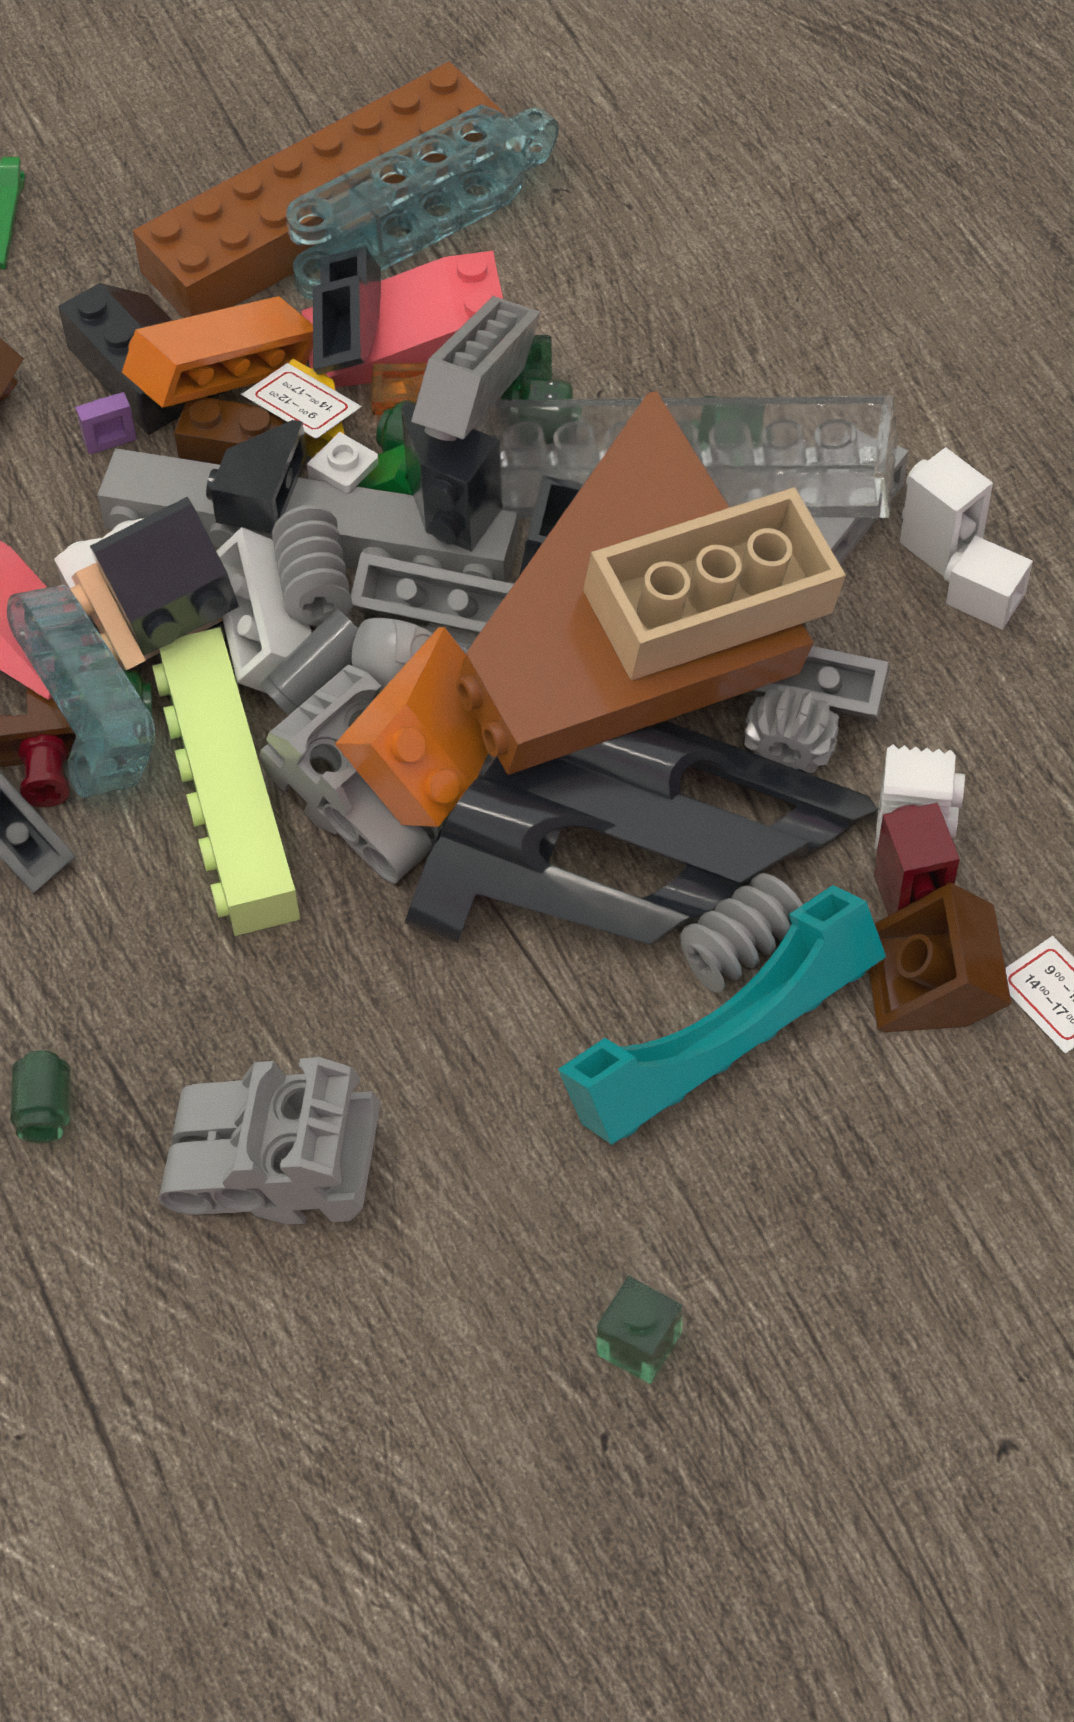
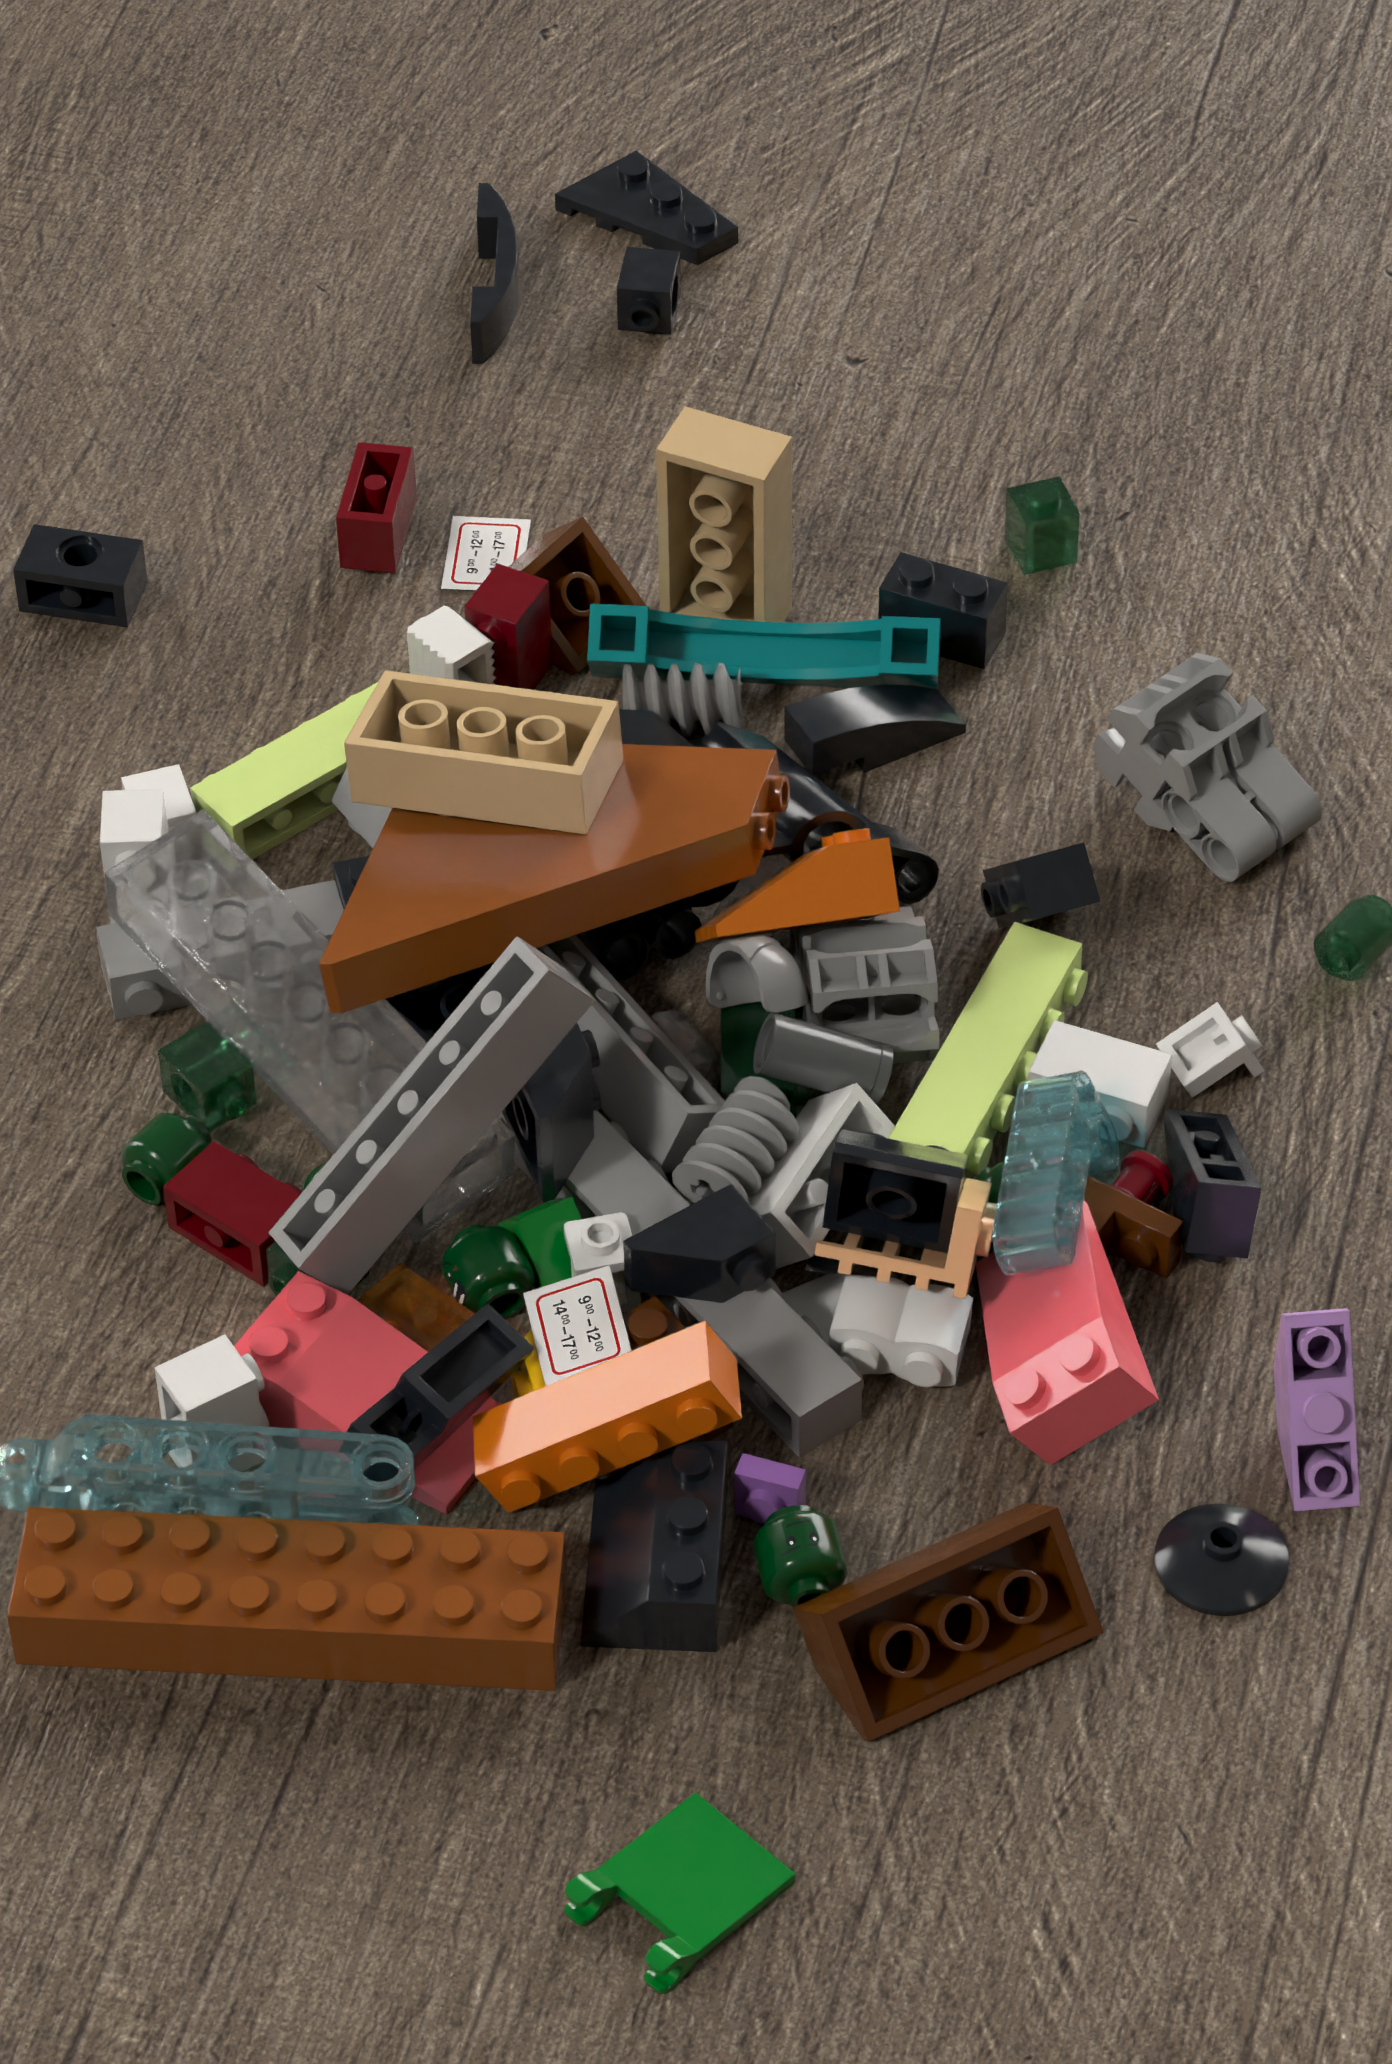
camera: 140 degrees left, 10 degrees down
(47, 392) = (799, 1555): none -> dark green head
(72, 921) = (1210, 1049): none -> white bracket
(135, 832) = (1126, 1075): none -> white brick
(273, 919) = (1039, 886): none -> black brick
(469, 215) = (212, 1387): none -> white brick
(582, 1013) = (868, 725): none -> black slope
(609, 362) = (228, 1208): none -> dark red brick
(633, 1171) = (968, 605): none -> black brick
(691, 369) = (160, 1153): none -> dark green head
(828, 1017) = (724, 519): none -> tan brick
(938, 669) = (284, 783): none -> yellowish green brick

